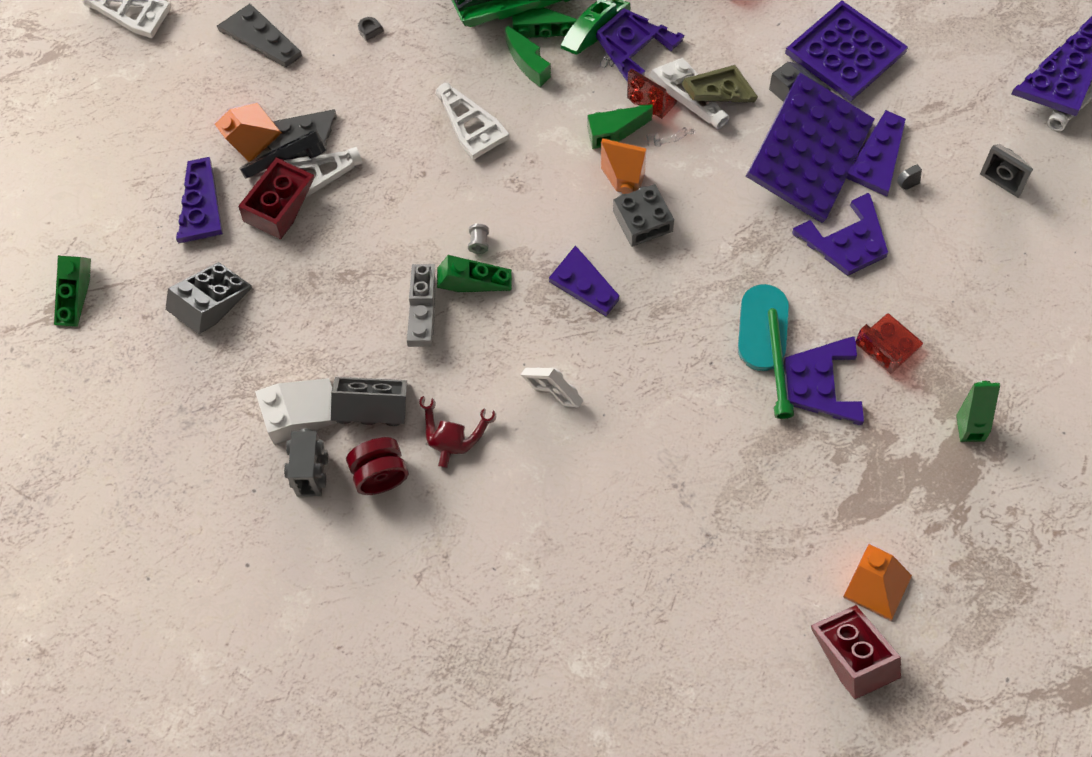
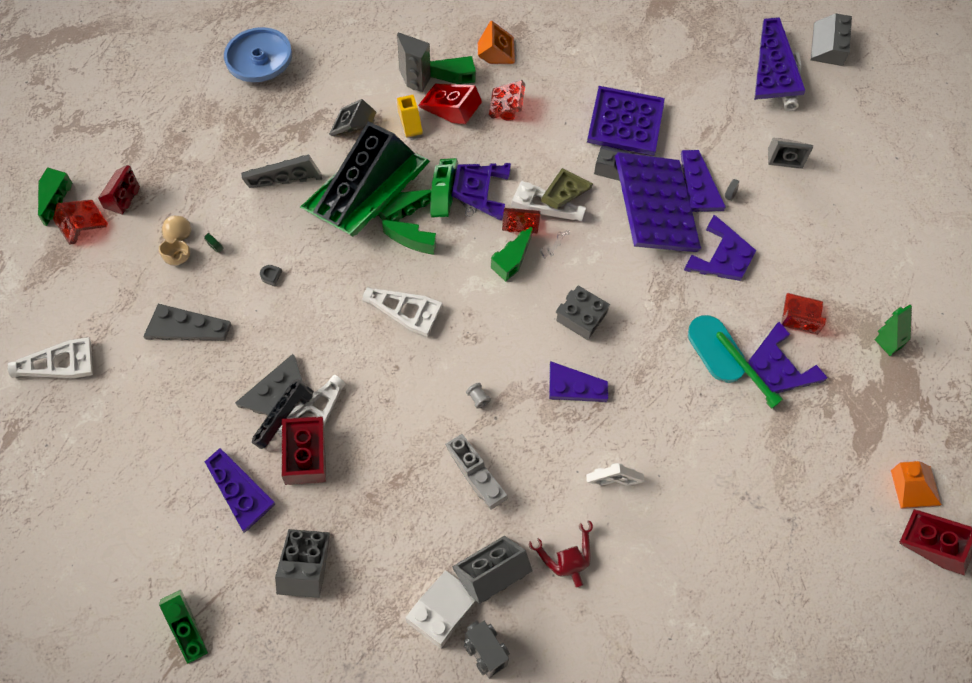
camera: 40 degrees left, 0 degrees up
(248, 129) = (238, 408): orange slope -> none
(377, 466) = (539, 616): dark red wheel -> none
(472, 276) = (494, 427): green slope -> none
(623, 165) = (544, 284): orange slope -> none

